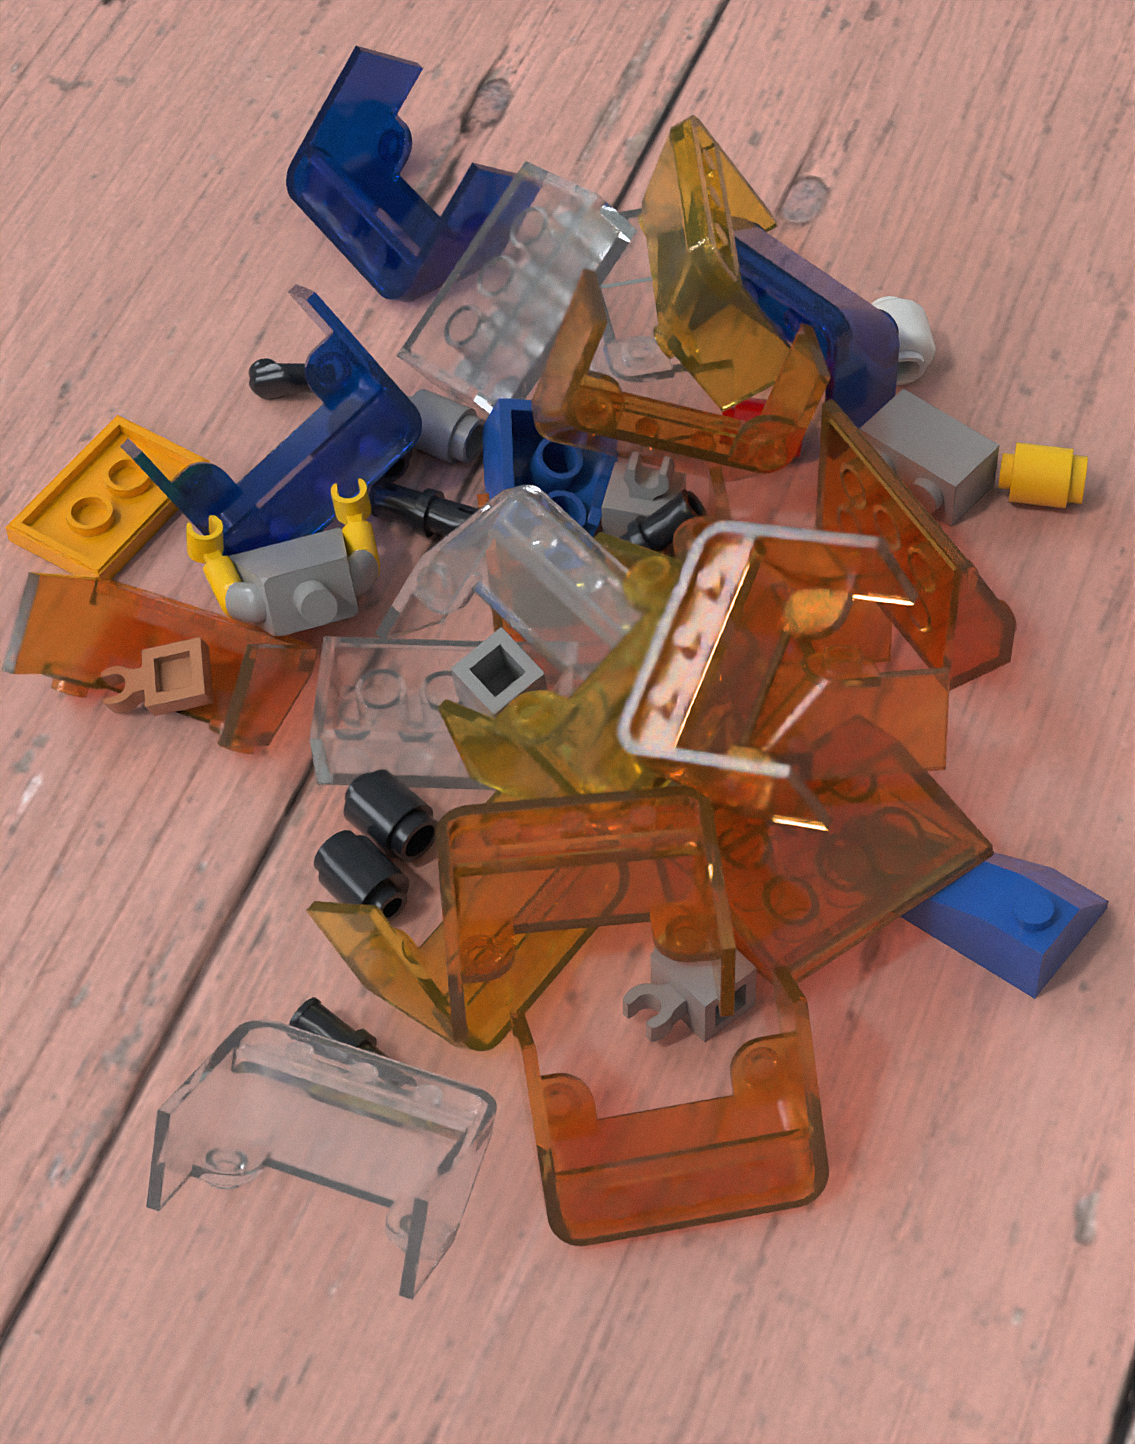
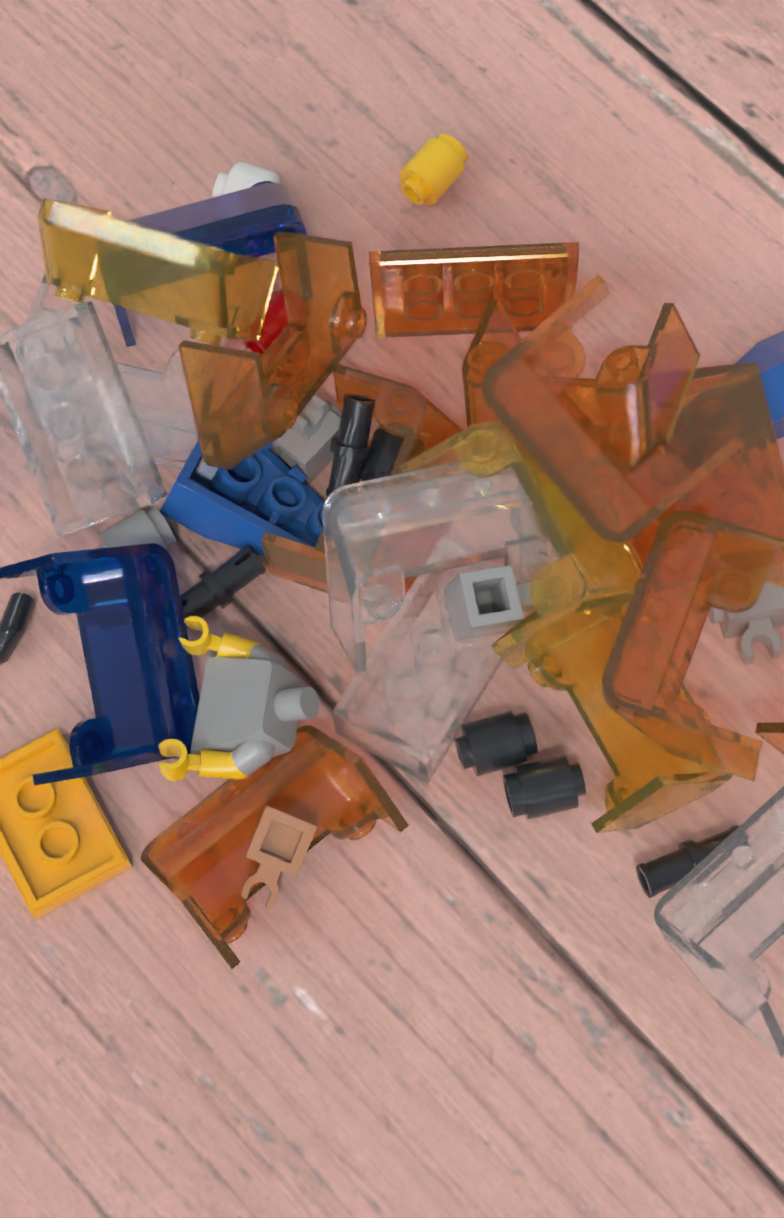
camera: 60 degrees left, 15 degrees up
(934, 455) = (375, 222): light grey brick -> none

